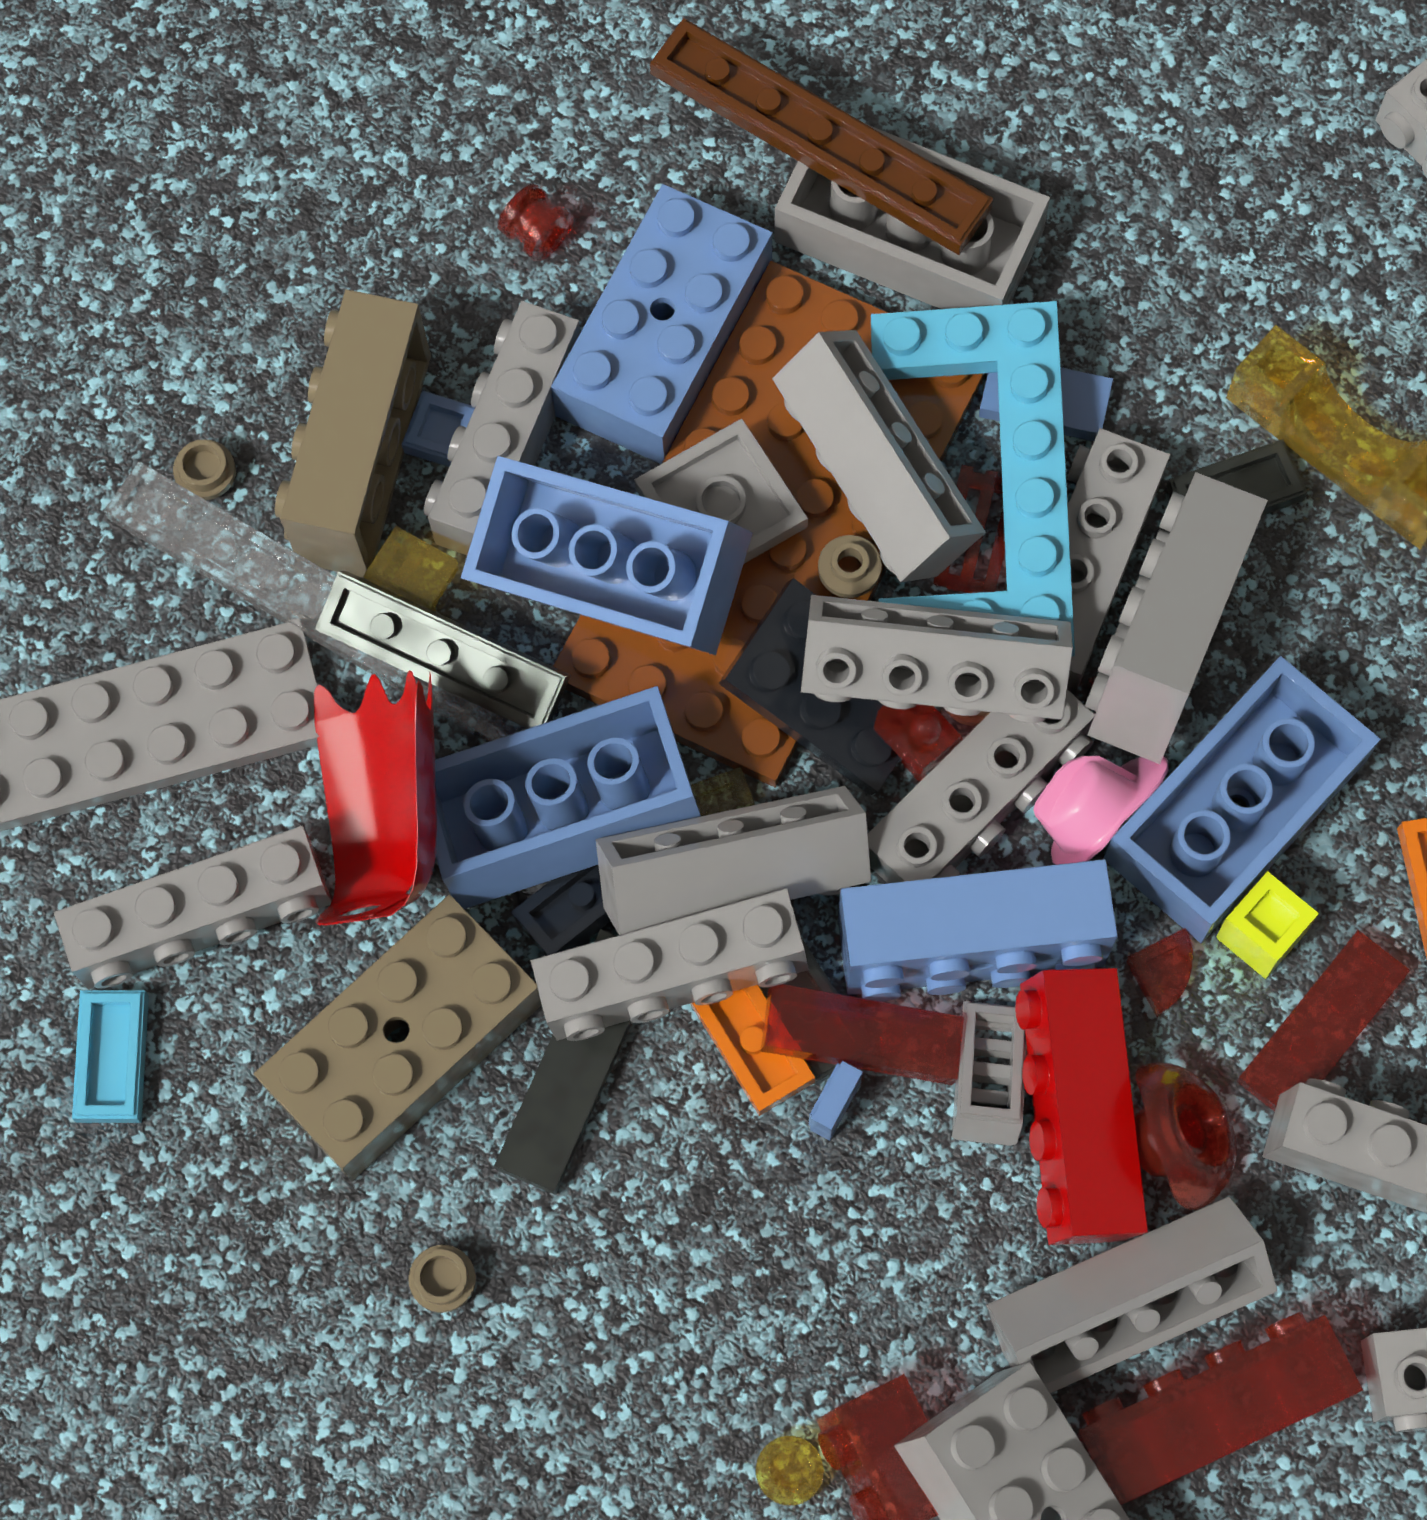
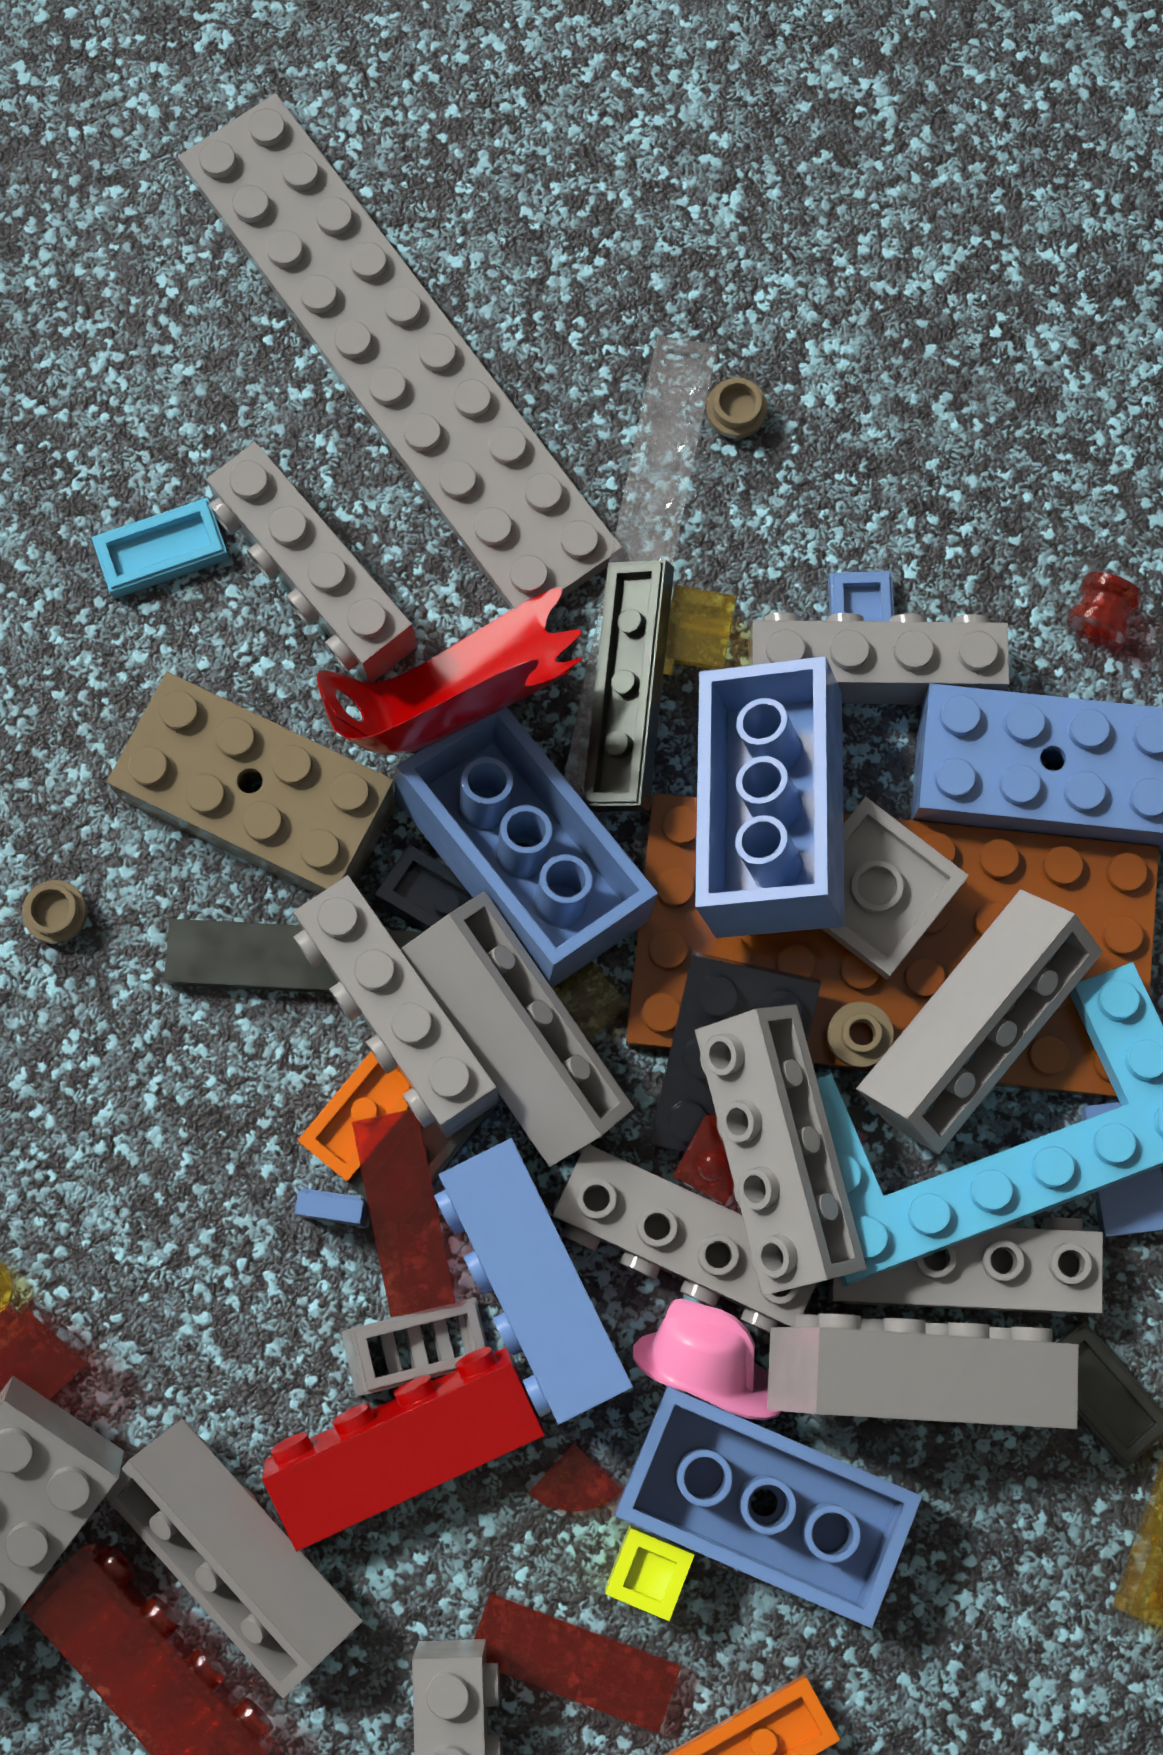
camera: 70 degrees right, 5 degrees up
(354, 432) = (815, 521): dark tan brick -> none
(988, 484) = (901, 1154): clear red tile -> none
(1184, 1134) = (411, 1556): clear red hat -> none

